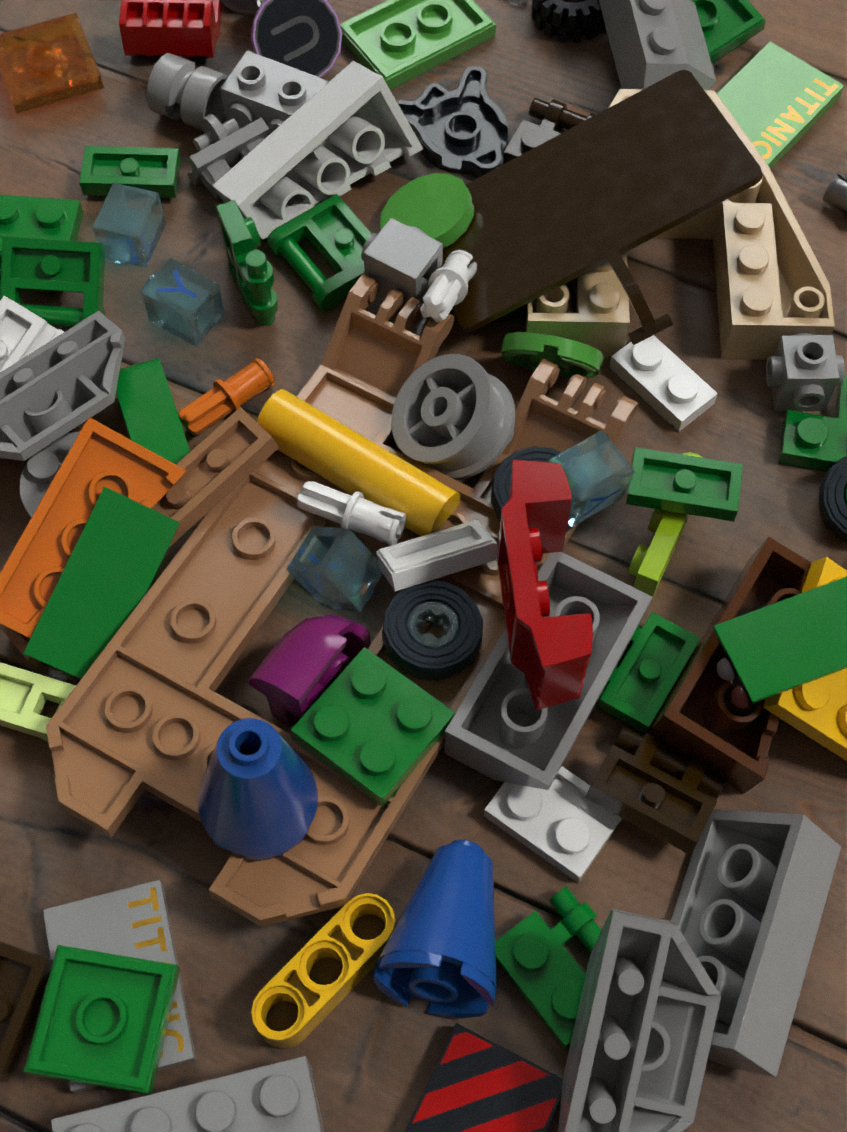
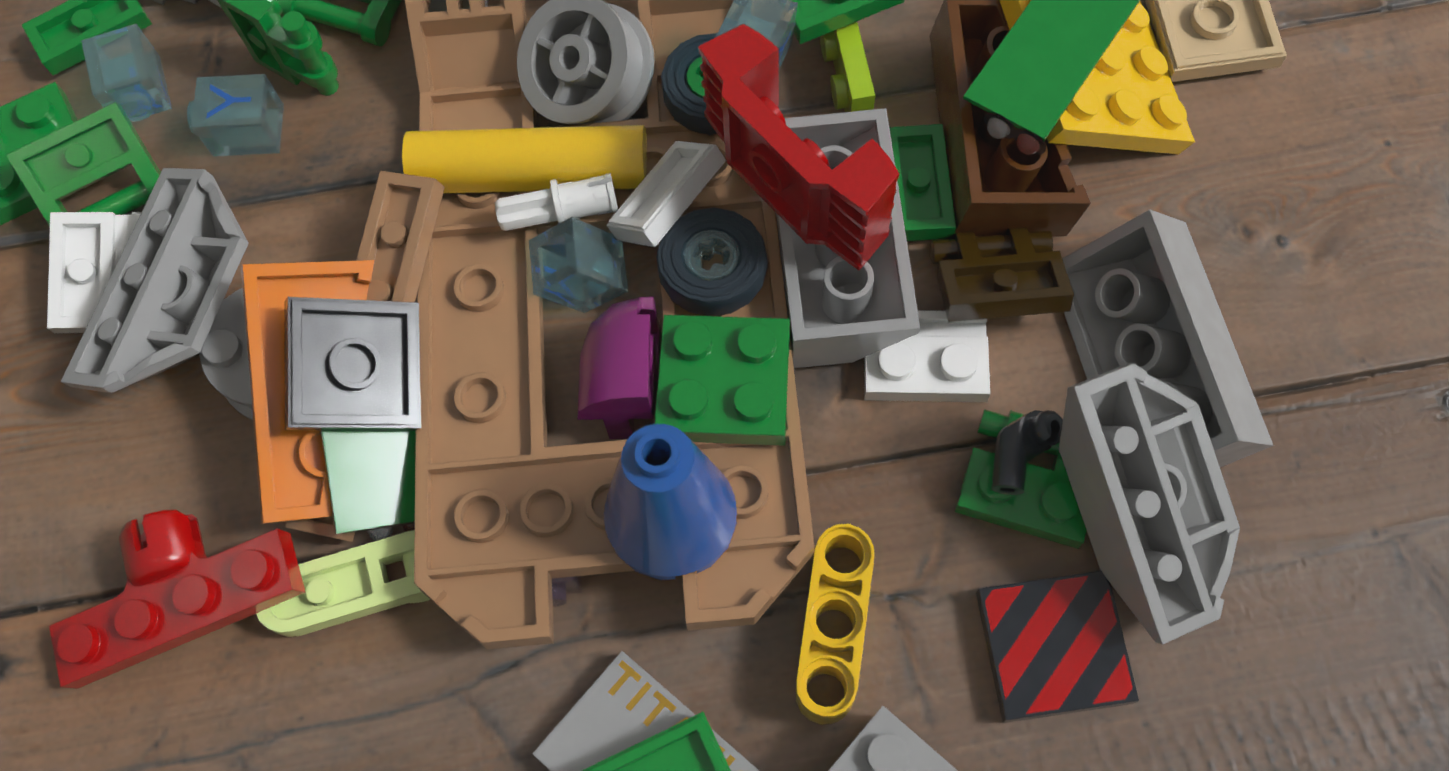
camera: 30 degrees left, 5 degrees up
(116, 538) = (351, 365): none -> tile
(151, 410) = (284, 231): green beam -> none
(226, 397) = (348, 178): orange axle -> none
(445, 937) = (921, 520): blue cone -> none
(562, 931) = (1020, 443): none -> black arm

